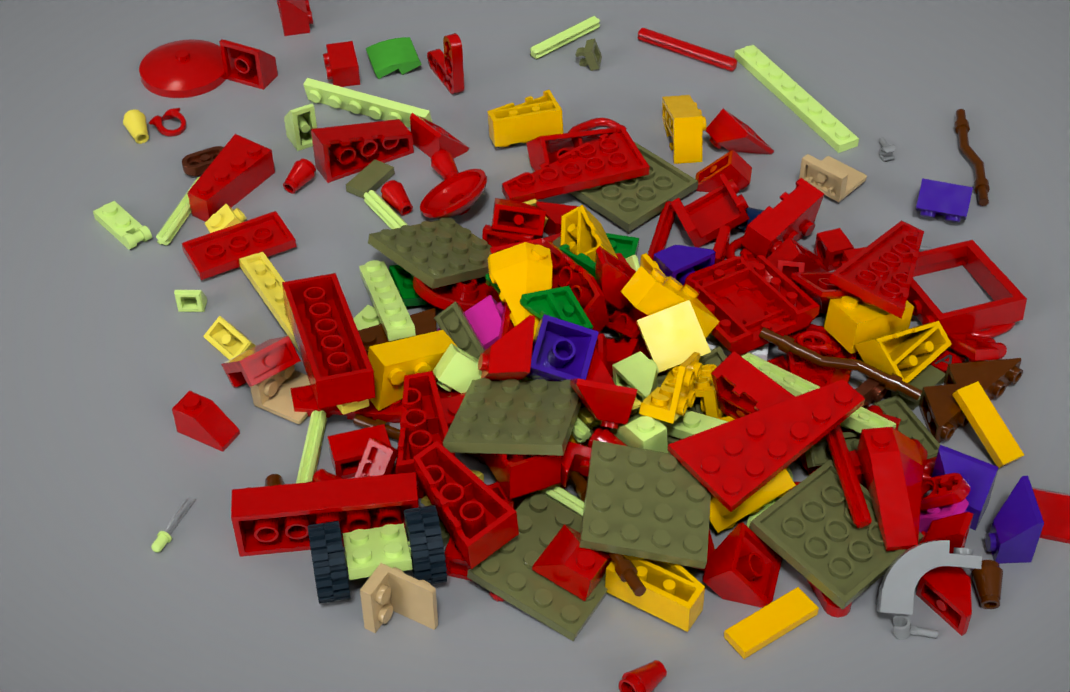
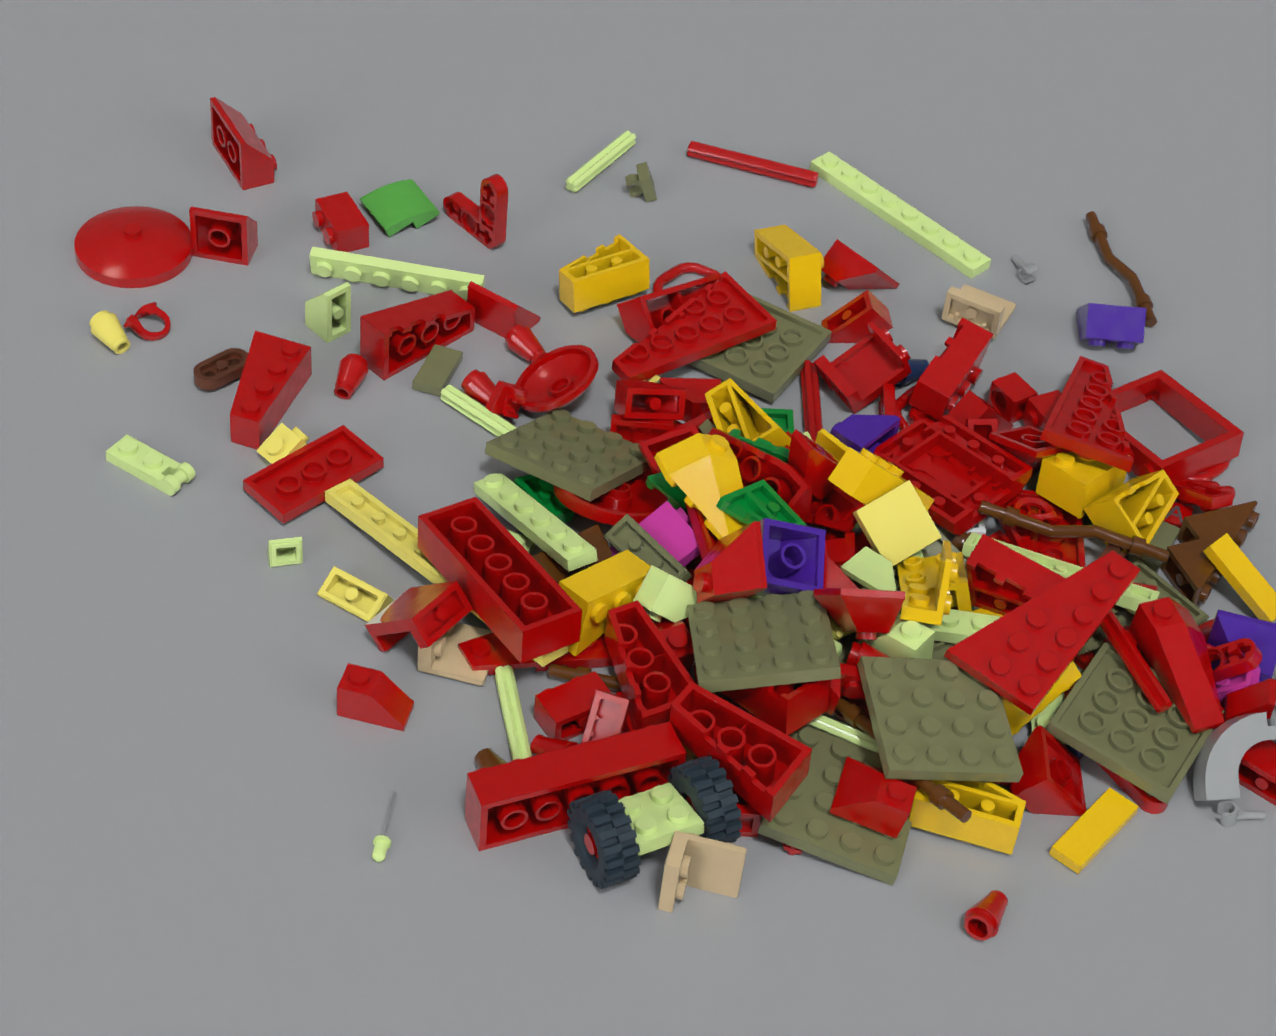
camera: 20 degrees left, 0 degrees up
(175, 221) = (219, 439): yellowish green axle -> none
(409, 205) = (506, 399): none -> red tile

